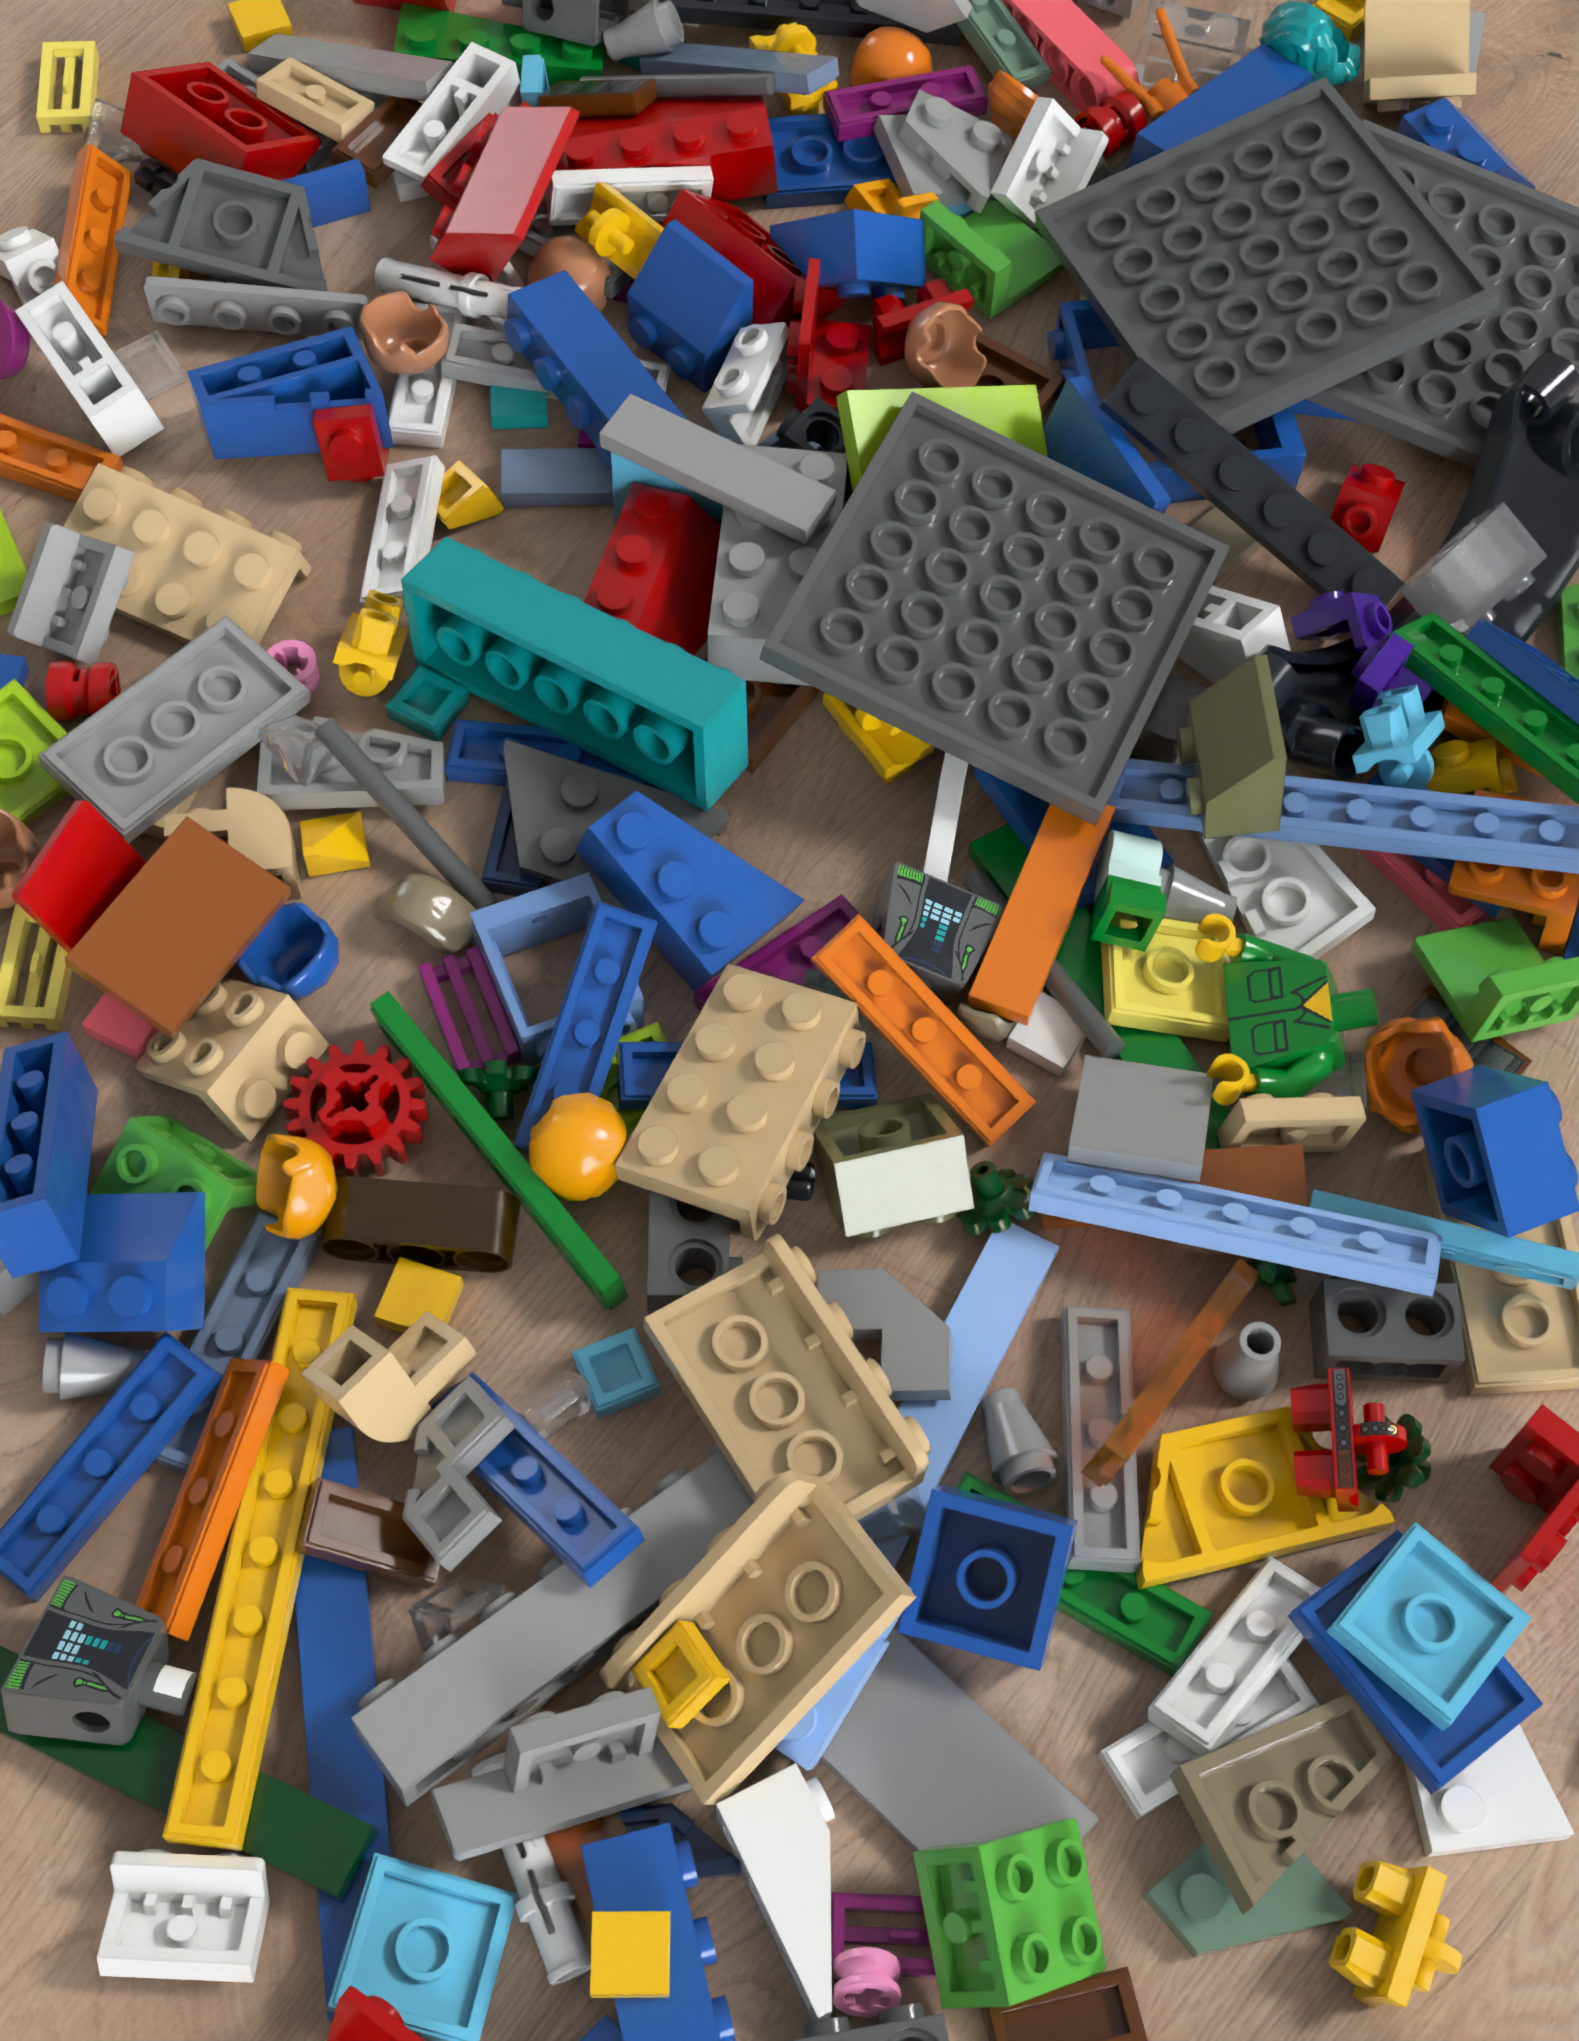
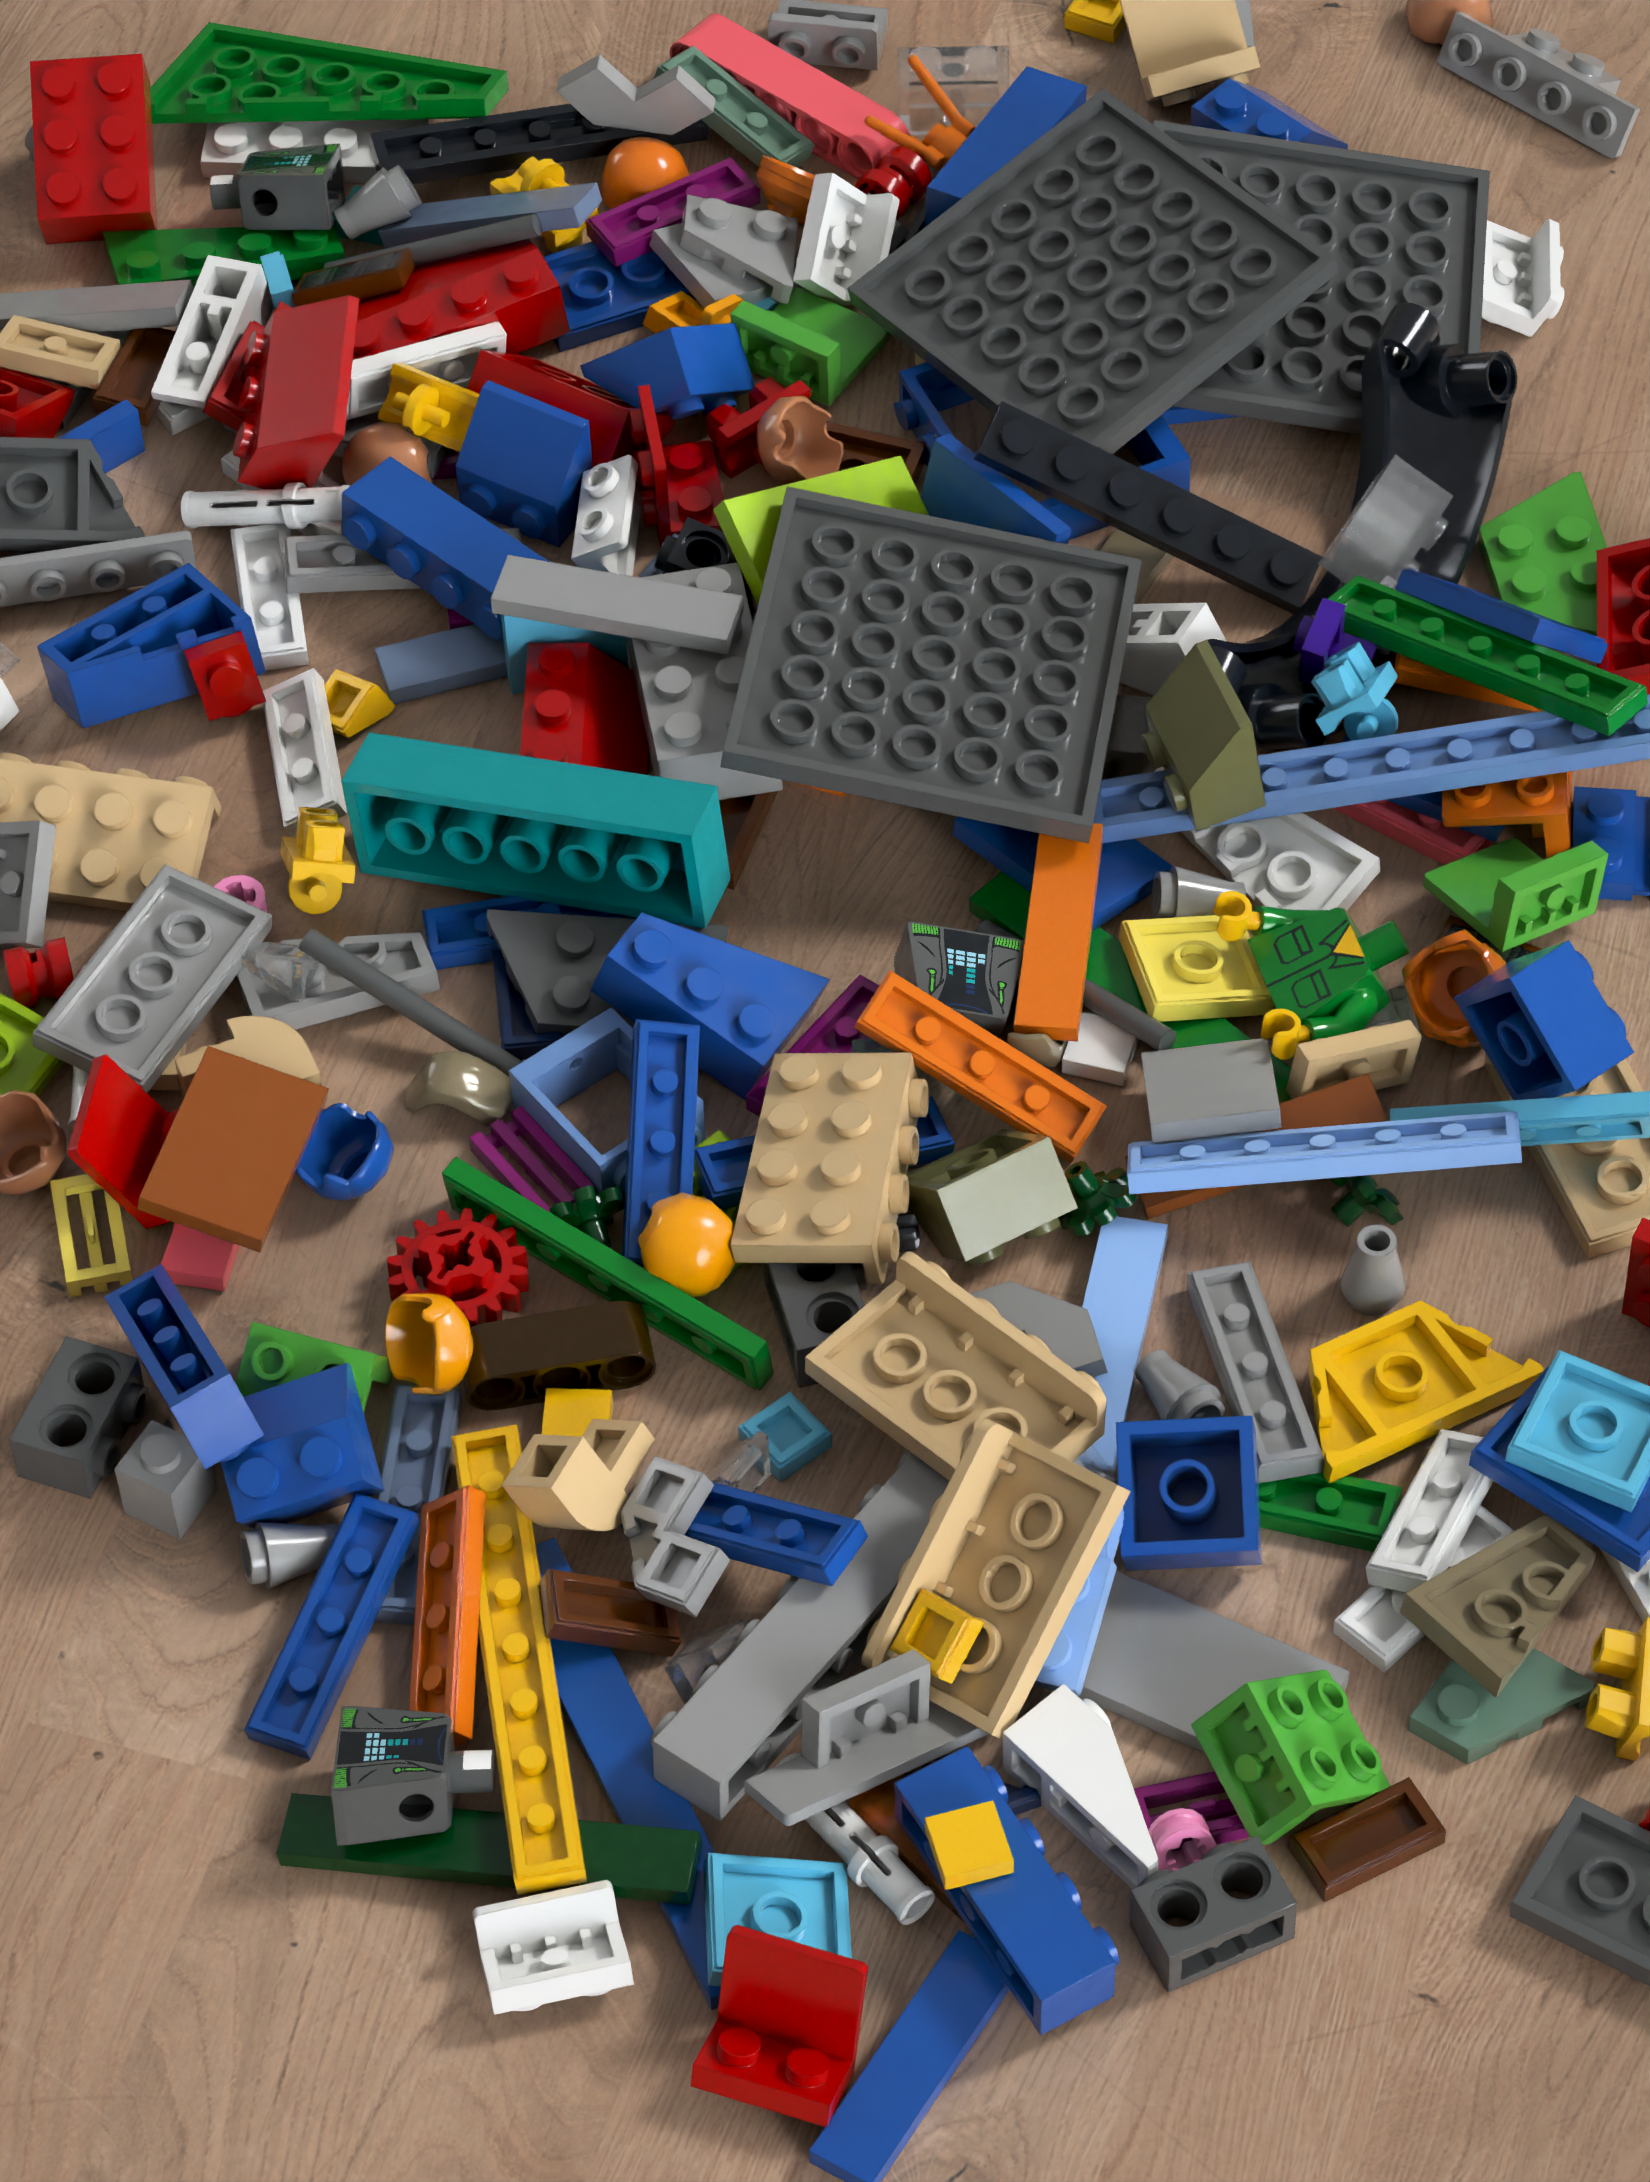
camera: 10 degrees left, 10 degrees down
(237, 1054) = (322, 1246): tan bracket -> none
(334, 844) = (344, 1053): yellow slope -> none
(402, 335) = (241, 561): nougat hair -> none
(427, 703) = (386, 903): teal tile -> none
(518, 408) = (374, 606): teal tile -> none
(885, 746) = (852, 820): yellow hips -> none
(945, 817) = (938, 869): white tile -> none
(1131, 885) = (1138, 887): leg -> none
(1170, 1374) = (1303, 1294): clear orange tile -> none
(1311, 42) = (1077, 54): teal hair -> none
(1335, 1470) = (1499, 1298): red hips -> none
(1340, 613) = (1267, 600): dark purple bracket -> none
(1367, 504) = (1265, 492): red bracket -> none
(1389, 1346) = (1506, 1214): dark grey brick -> none
(1406, 1467) = (1529, 1319): dark green plant -> none
(1470, 767) = (1436, 707): yellow bracket -> none

